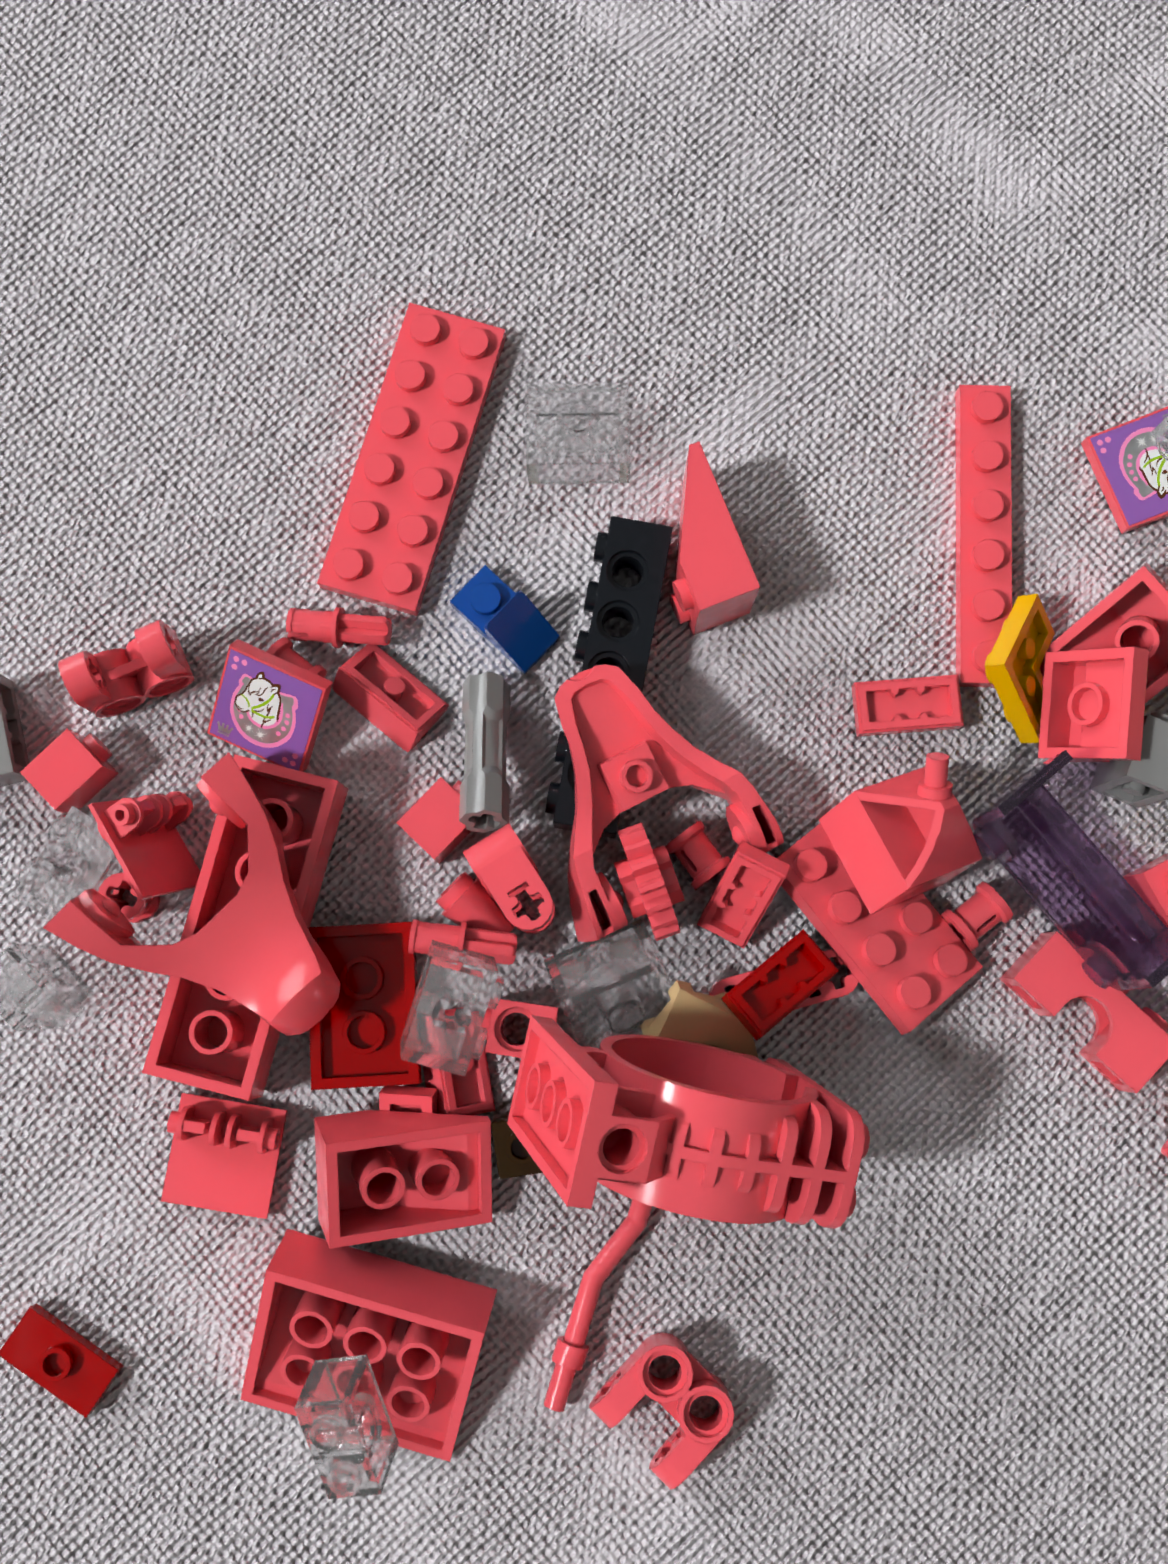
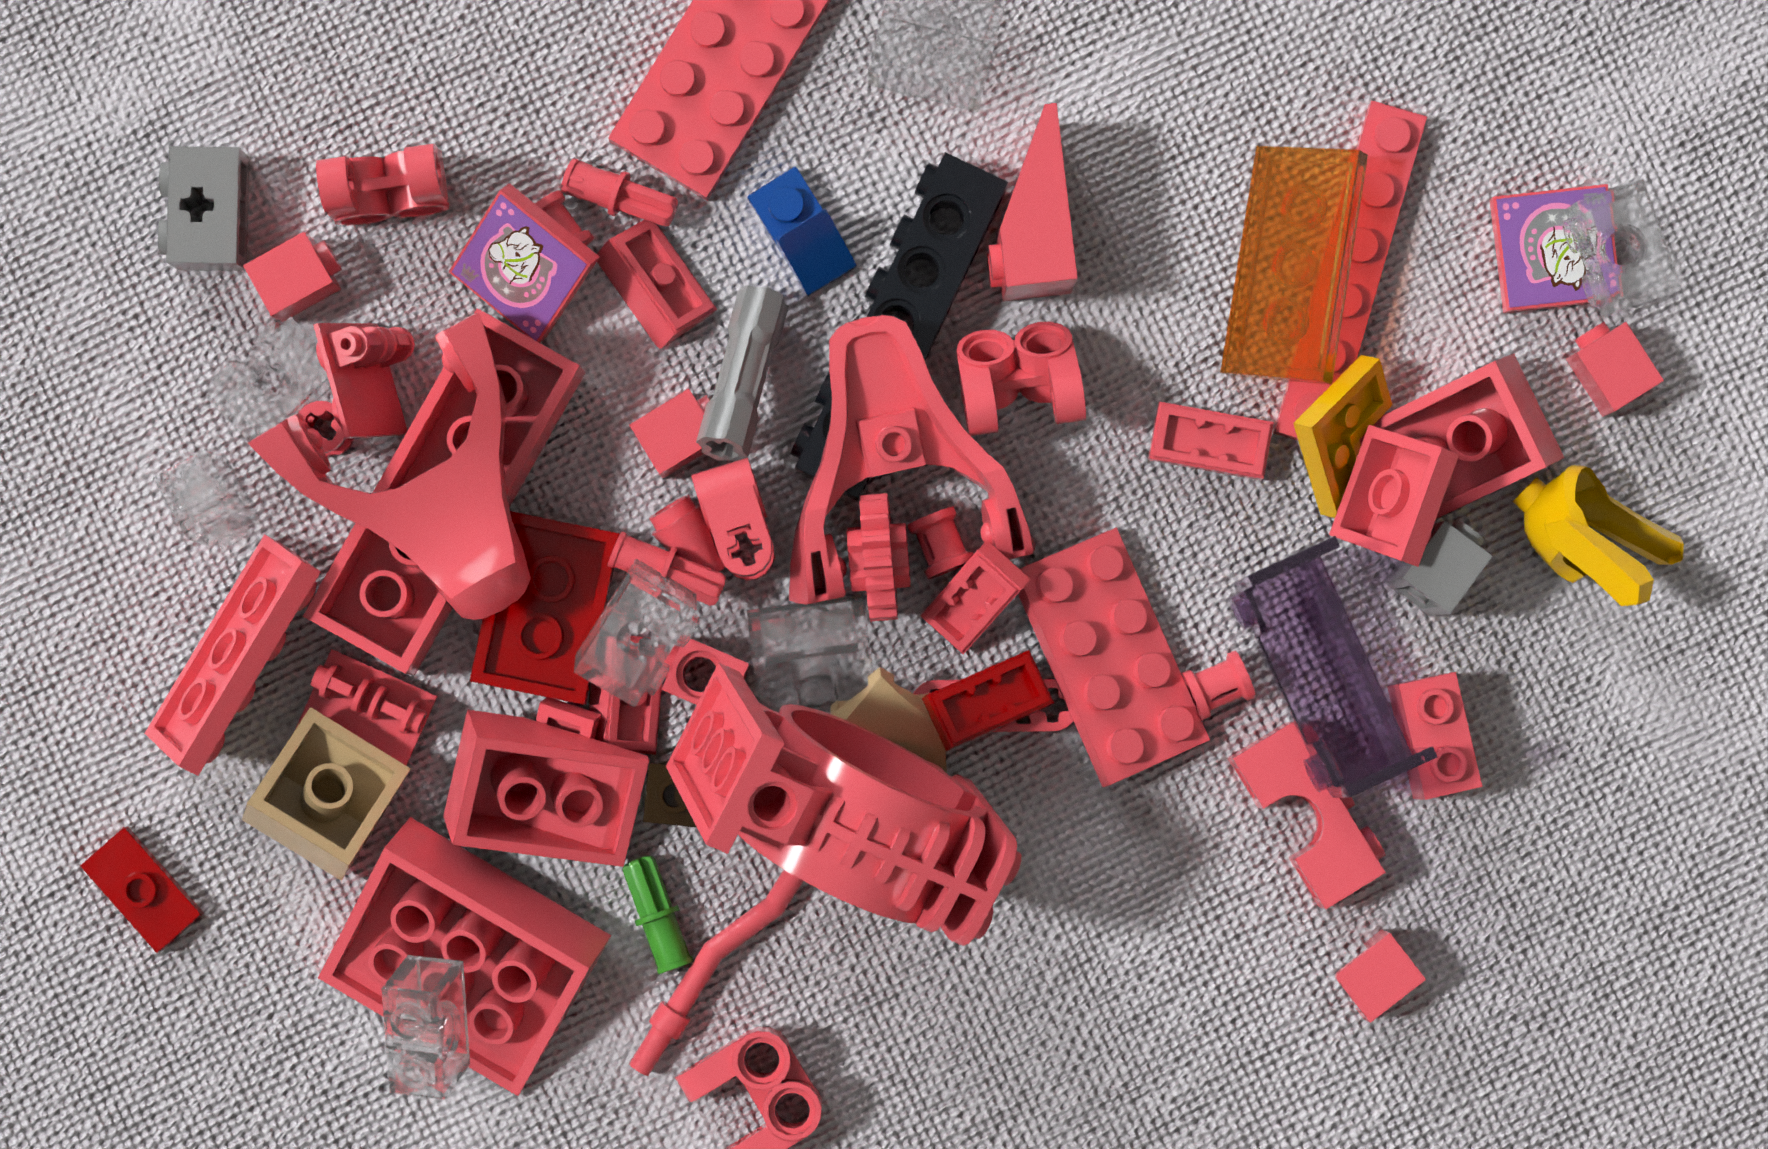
camera: 10 degrees right, 5 degrees up
(84, 1138) = (232, 655): none -> coral plate
(204, 1228) = (325, 793): none -> tan slope
(533, 1258) = (656, 914): none -> bright green axle
(739, 678) = (1036, 363): none -> coral piece
(902, 835) = (1155, 580): coral piece -> none
(938, 535) = (1294, 264): none -> clear orange tile

